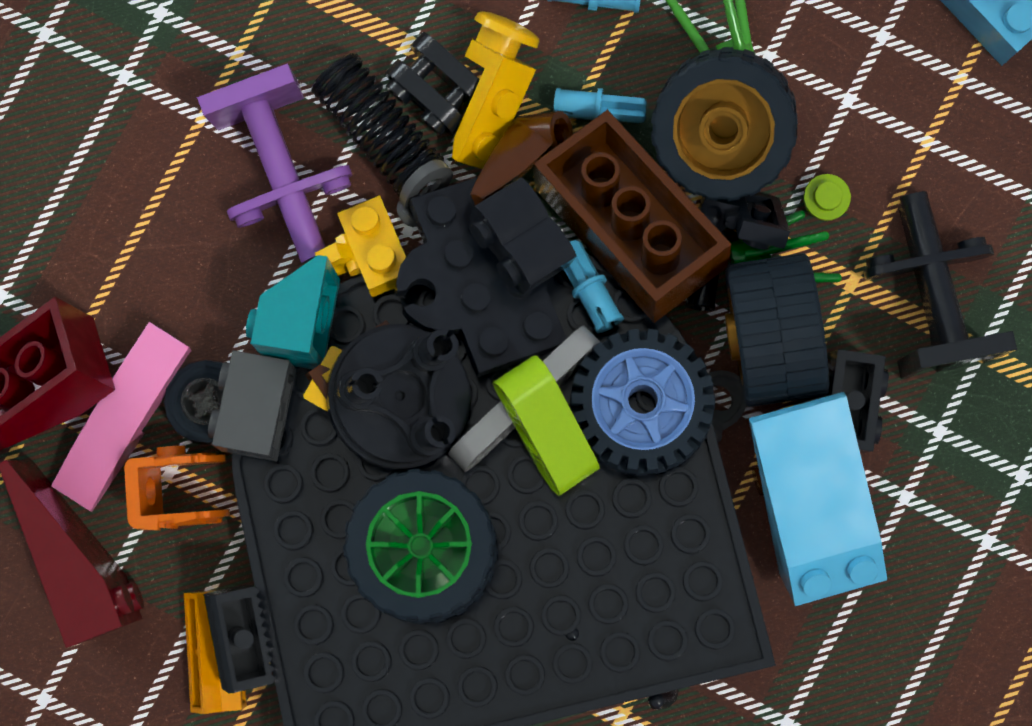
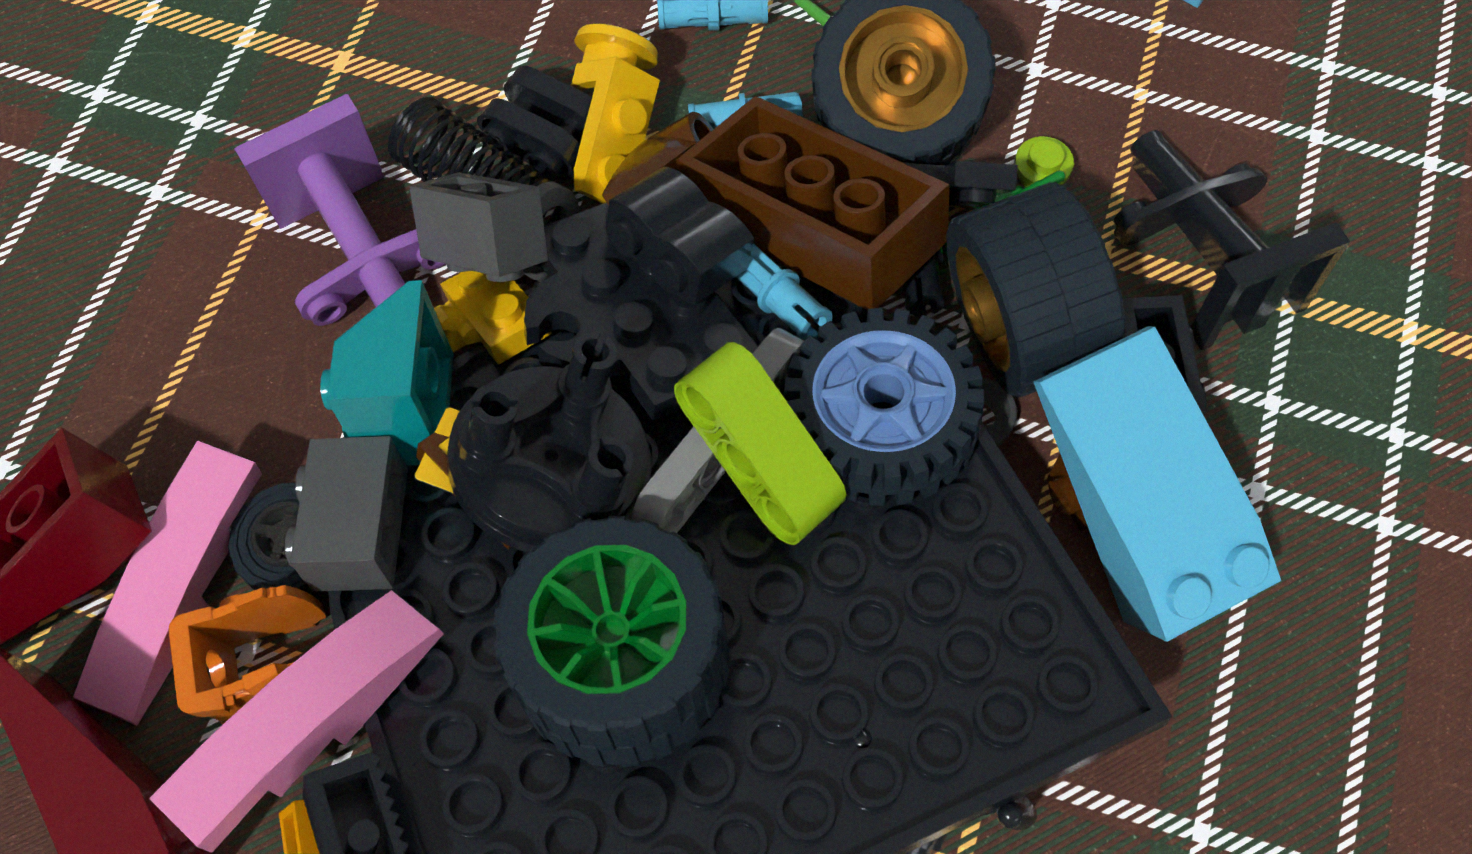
camera: 10 degrees left, 20 degrees down
(210, 548) = (294, 718): none -> bright pink slope
(374, 190) = (480, 225): none -> dark grey brick

